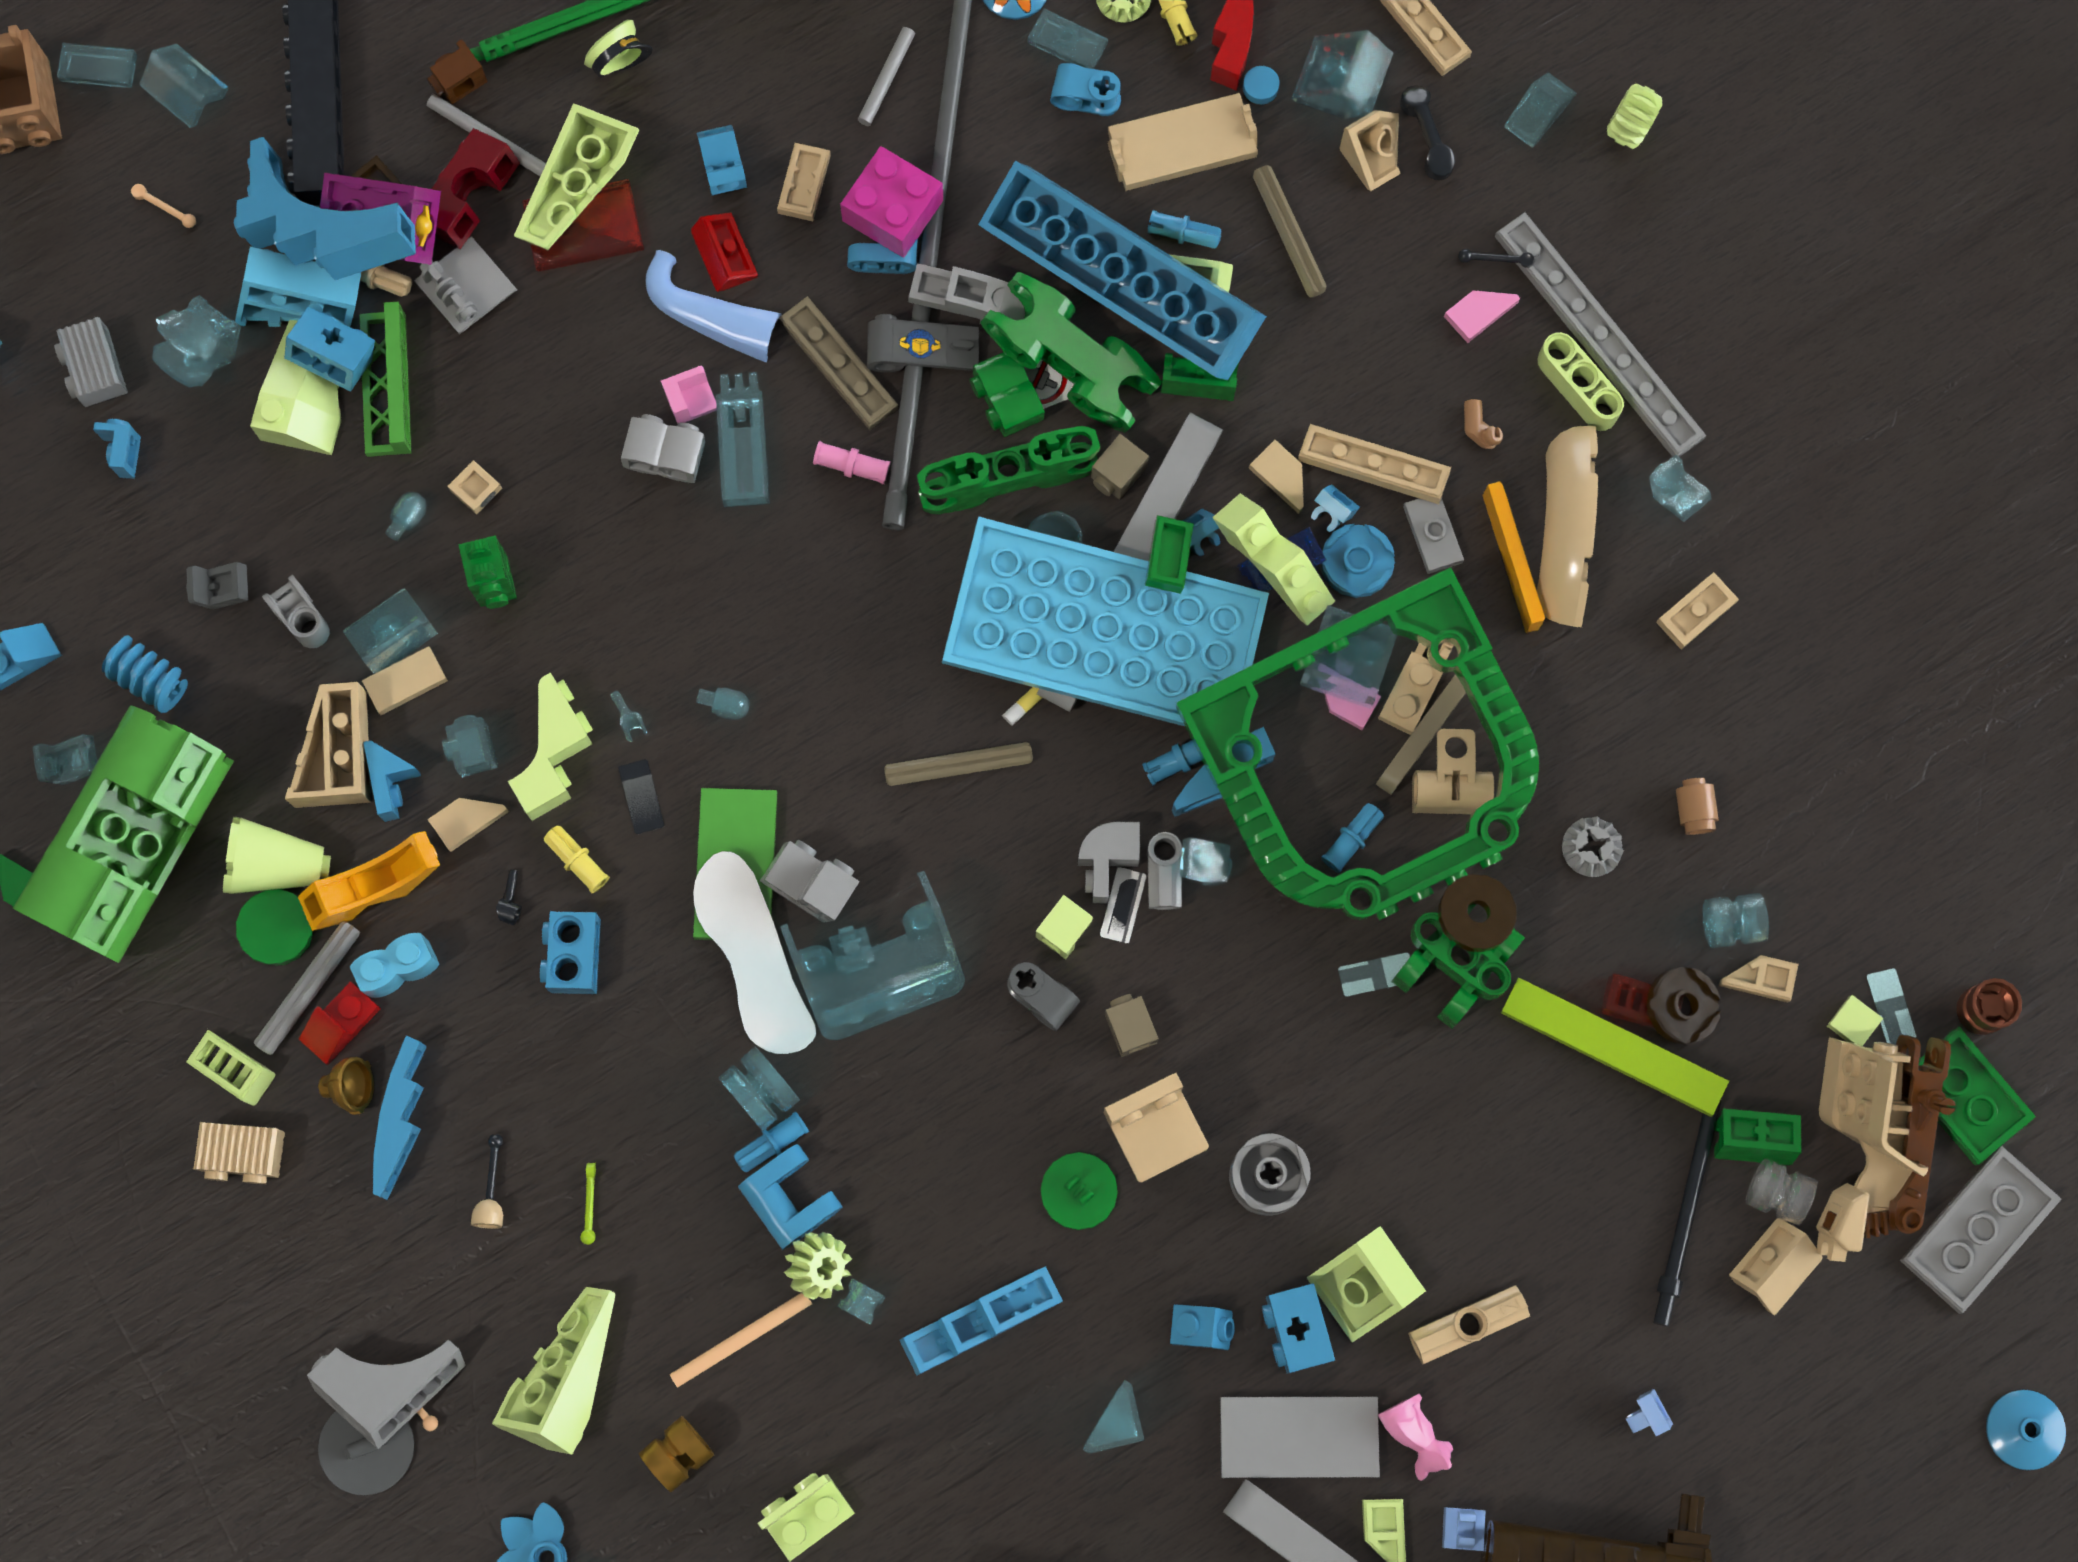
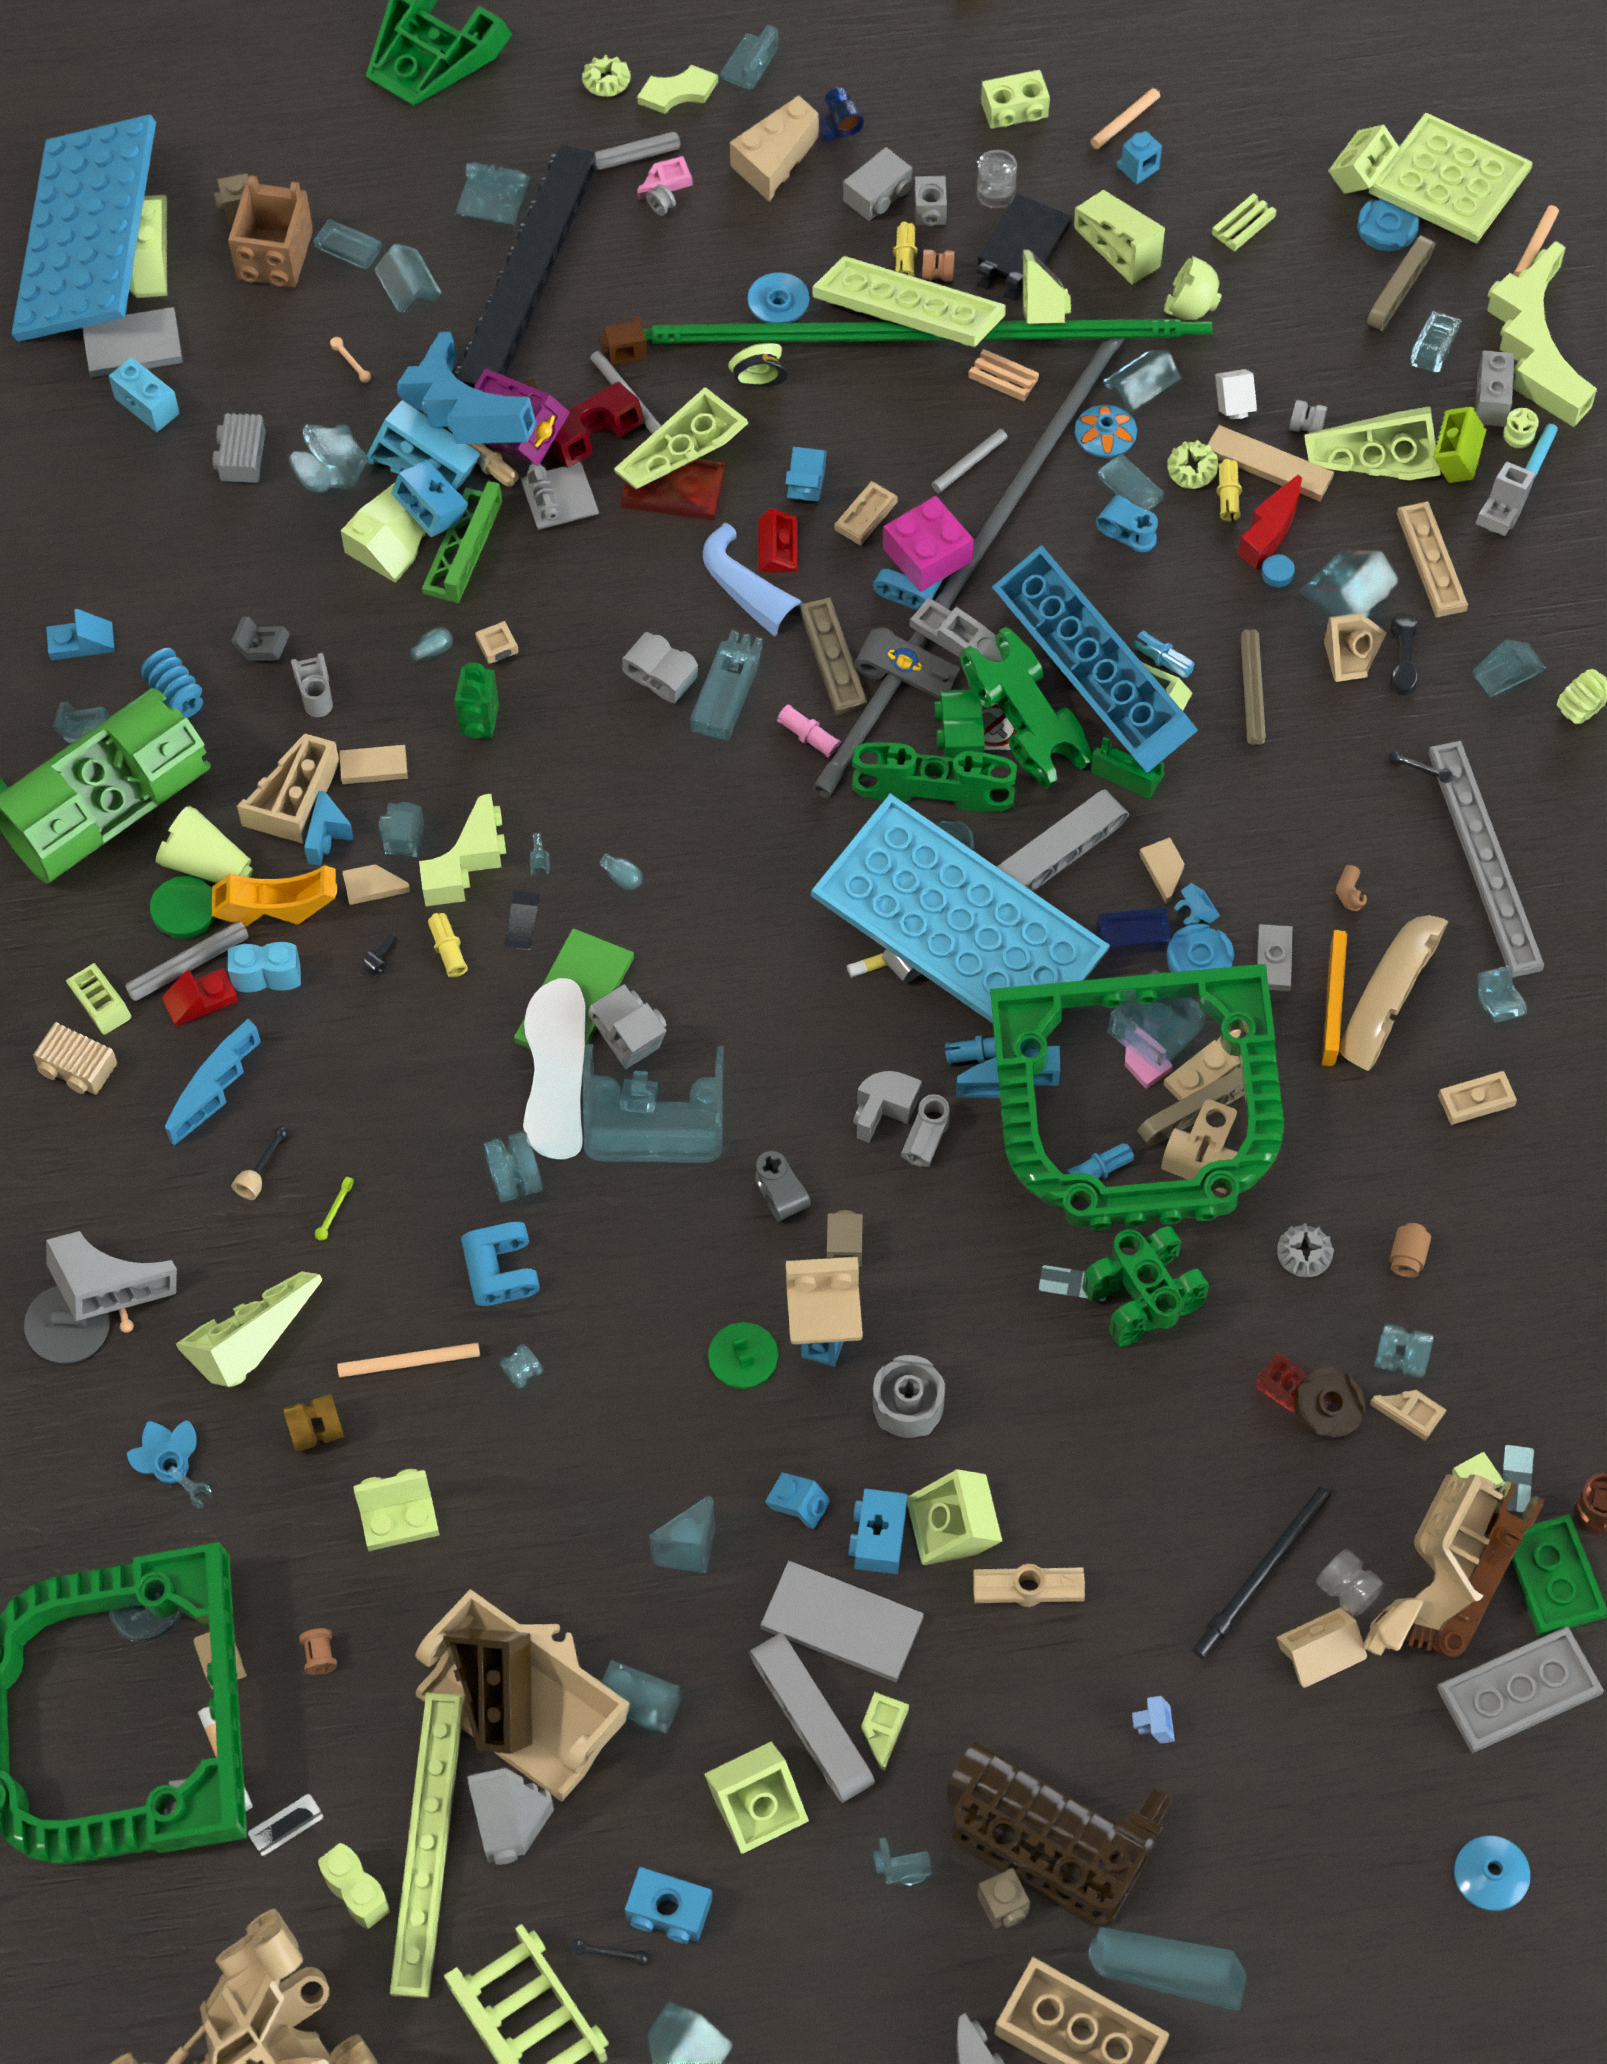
camera: 25 degrees right, 15 degrees down
(124, 450) = (235, 515): dark azure bracket -> none
(349, 1085) = (185, 1042): pearl gold piece -> none
(390, 632) = (380, 725): clear light blue slope -> none
(582, 951) = (417, 1013): dark azure brick -> none
(689, 395) = (700, 634): bright pink panel -> none
(770, 1142) = (490, 1217): dark azure axle -> none
(818, 1265) = (495, 1335): yellowish green gear -> none
(958, 763) = (793, 988): dark tan axle -> none
(981, 1320) = (614, 1421): dark azure slope -> none
(1063, 926) = (821, 1139): yellowish green panel -> none
(1119, 467) = (1028, 811): dark tan brick -> none
(1123, 905) = (881, 1148): sticker -> none
(1169, 554) = (1037, 882): green tile -> none
(1182, 141) = (1193, 590): tan brick -> none
(1203, 527) = (1072, 881): dark azure tile -> none
(1205, 861) = (964, 1132): clear light blue bracket -> none
(1278, 559) = (1126, 917): yellowish green arch -> none
(1374, 464) = (1246, 886): tan tile -> none
(1412, 1429) = (940, 1645): bright pink animal -> none
(1463, 1529) = (949, 1750): light blue tile -> none
(1479, 311) = (1388, 803): bright pink tile -> none
(1492, 897) = (1180, 1227): dark brown tile -> none
(1581, 398) = (1448, 897): yellowish green beam -> none
(1615, 1047) = (1255, 1414): lime tile -> none
(1758, 1136) = (1344, 1527): green hinge -> none

